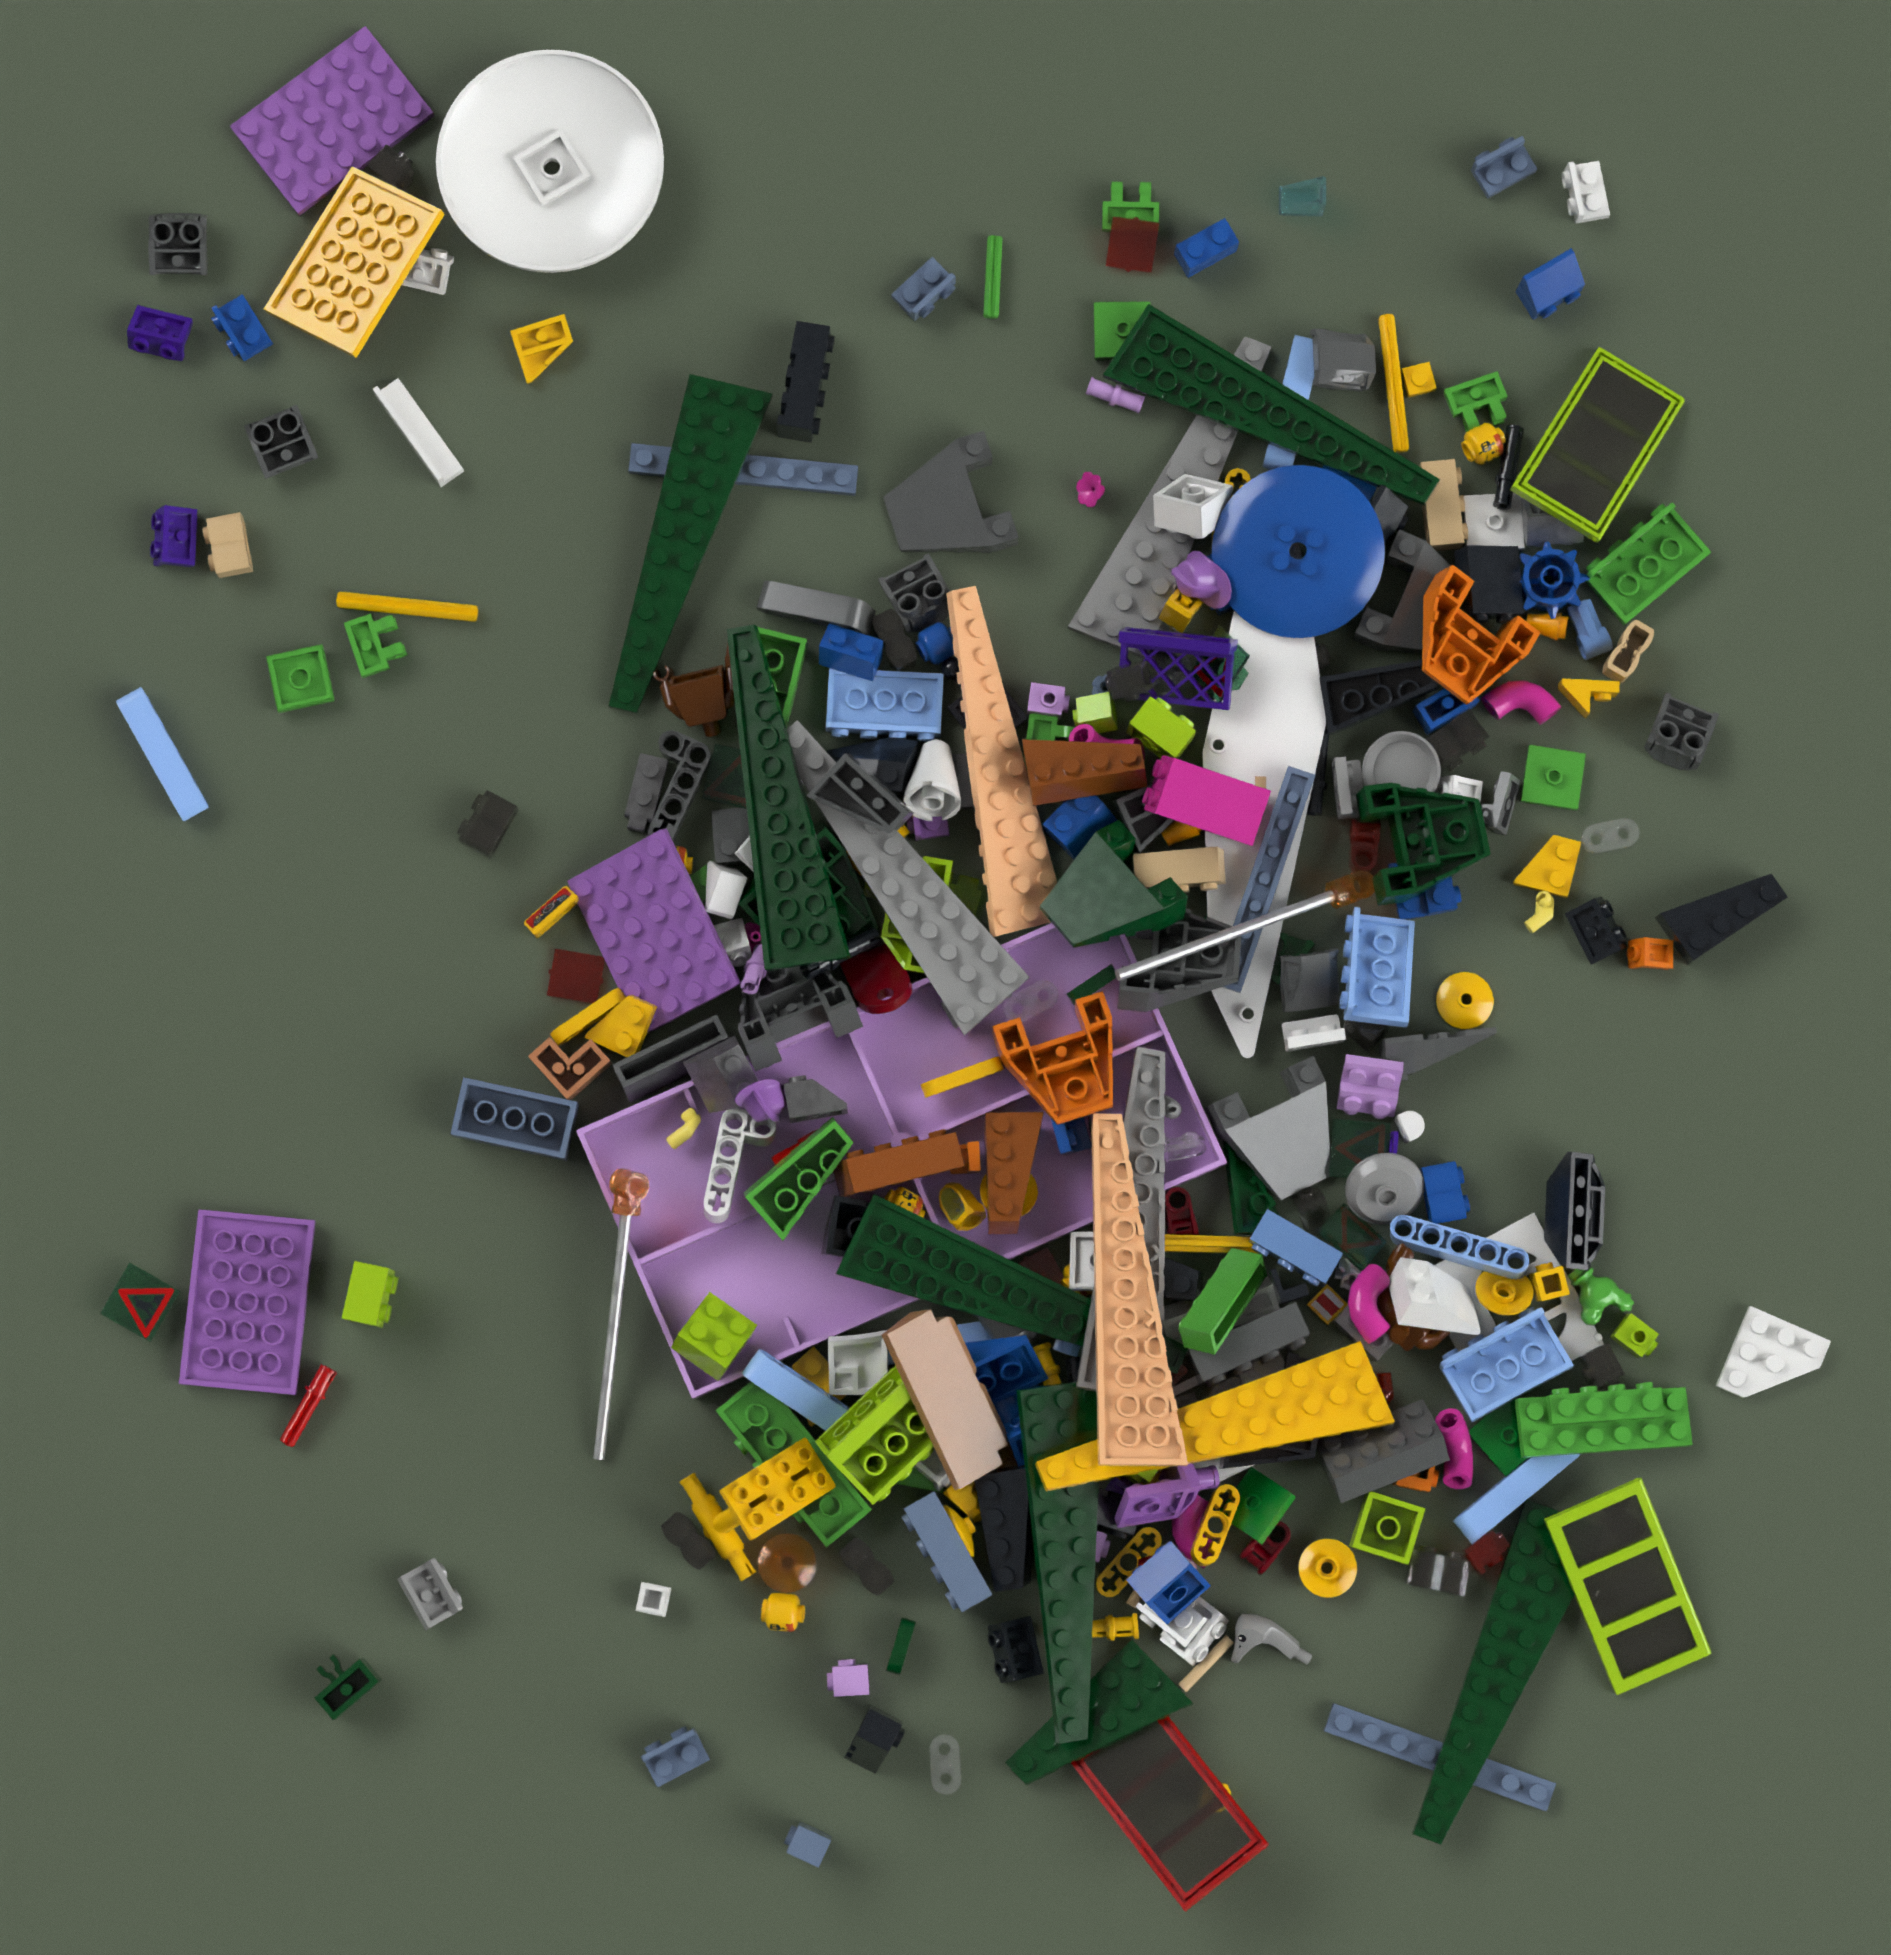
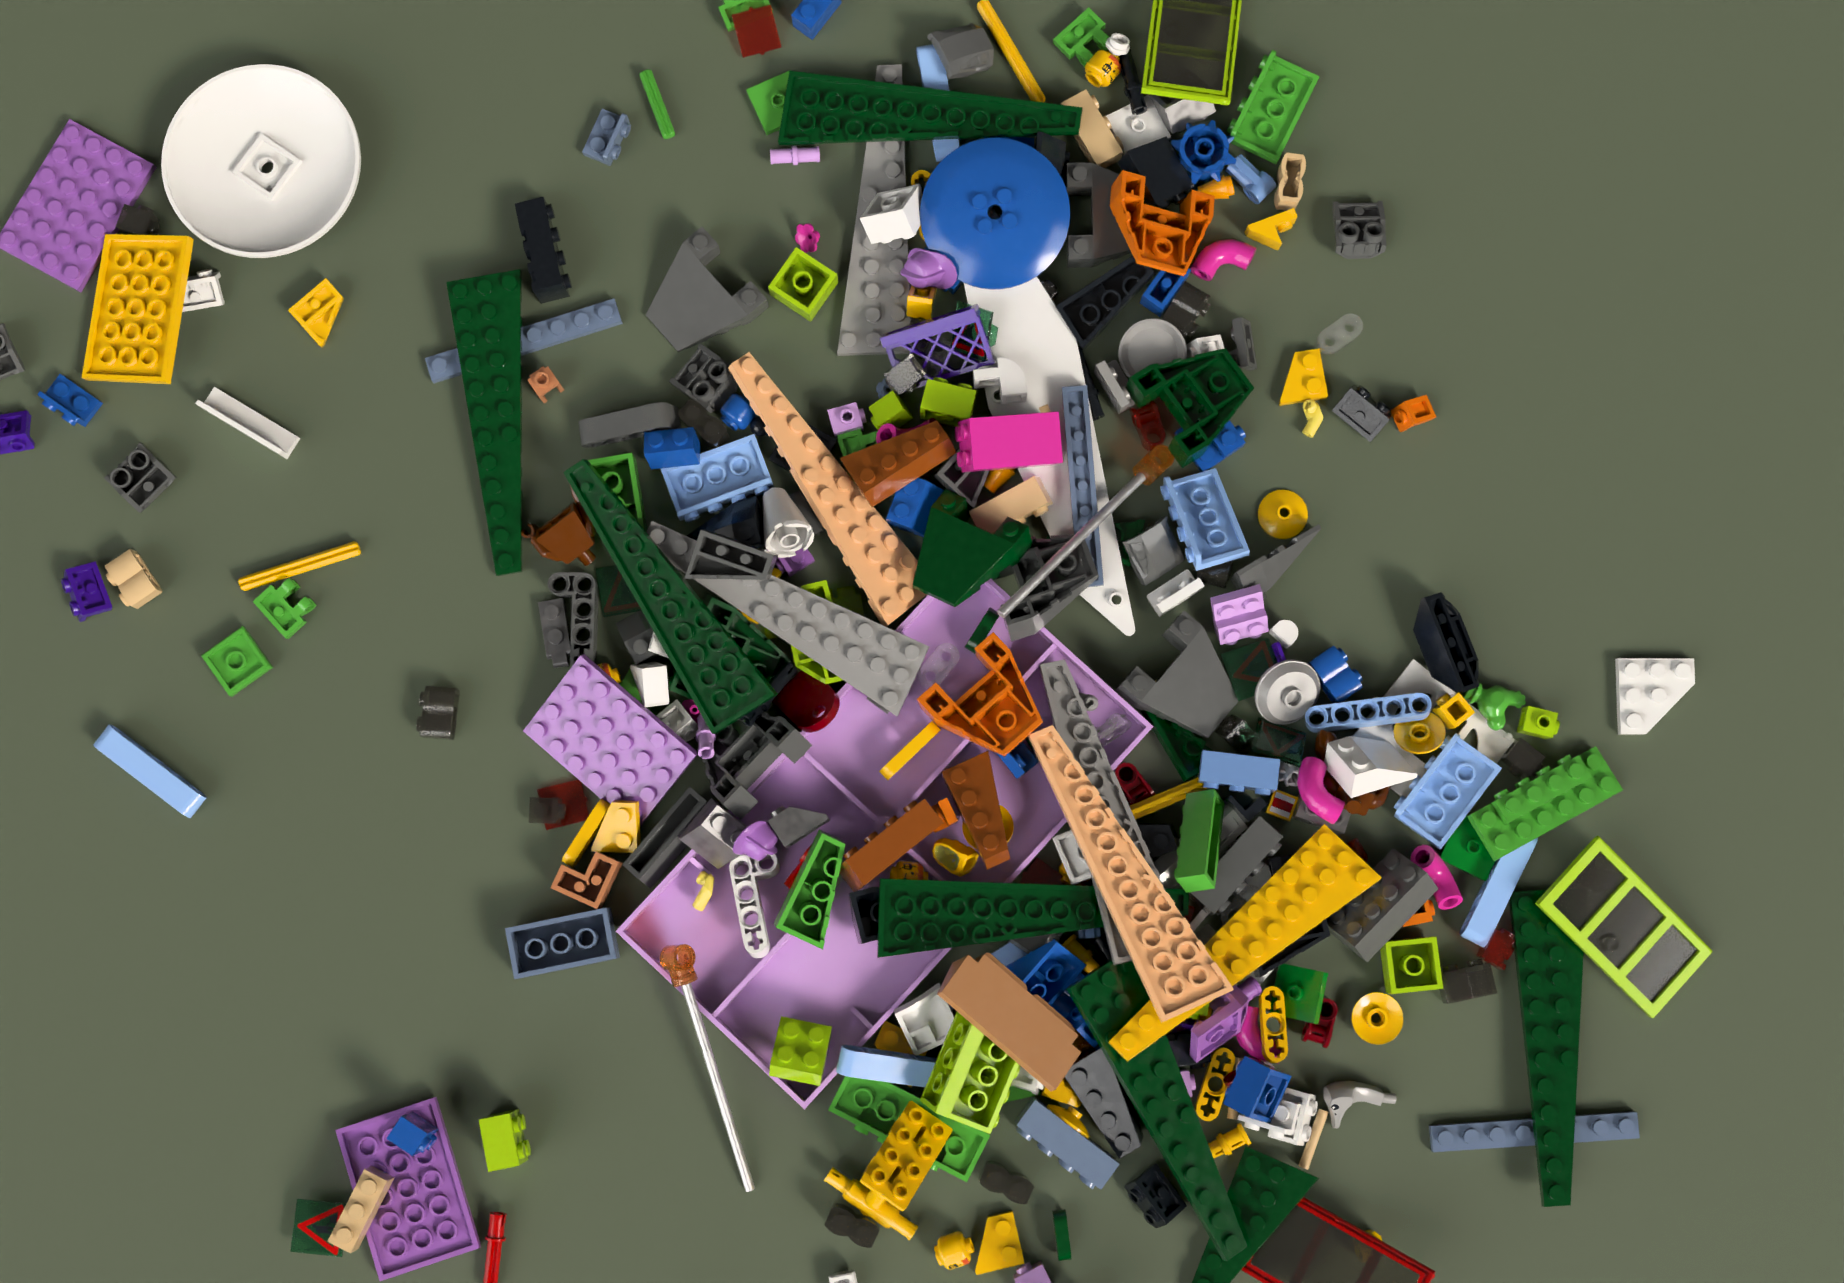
camera: 15 degrees left, 0 degrees up
(192, 1300) = (361, 1209): none -> tan brick
(280, 1247) = (413, 1134): none -> blue brick
(551, 911) = (521, 761): slope -> none
(556, 974) = (546, 810): none -> clear smoke bracket
(746, 523) = (544, 381): none -> nougat window
(771, 1563) = (940, 1221): clear orange dish -> none
(832, 1628) = (999, 1245): none -> yellow wing
(1064, 538) = (803, 284): none -> lime brick
(1235, 728) = (1007, 376): none -> white brick
(1418, 379) = (1029, 41): yellow plate -> none
(1510, 425) = (1118, 44): none -> white plate
(1552, 777) = (1273, 307): bright green plate -> none
(1712, 919) = (1453, 362): black wedge -> none

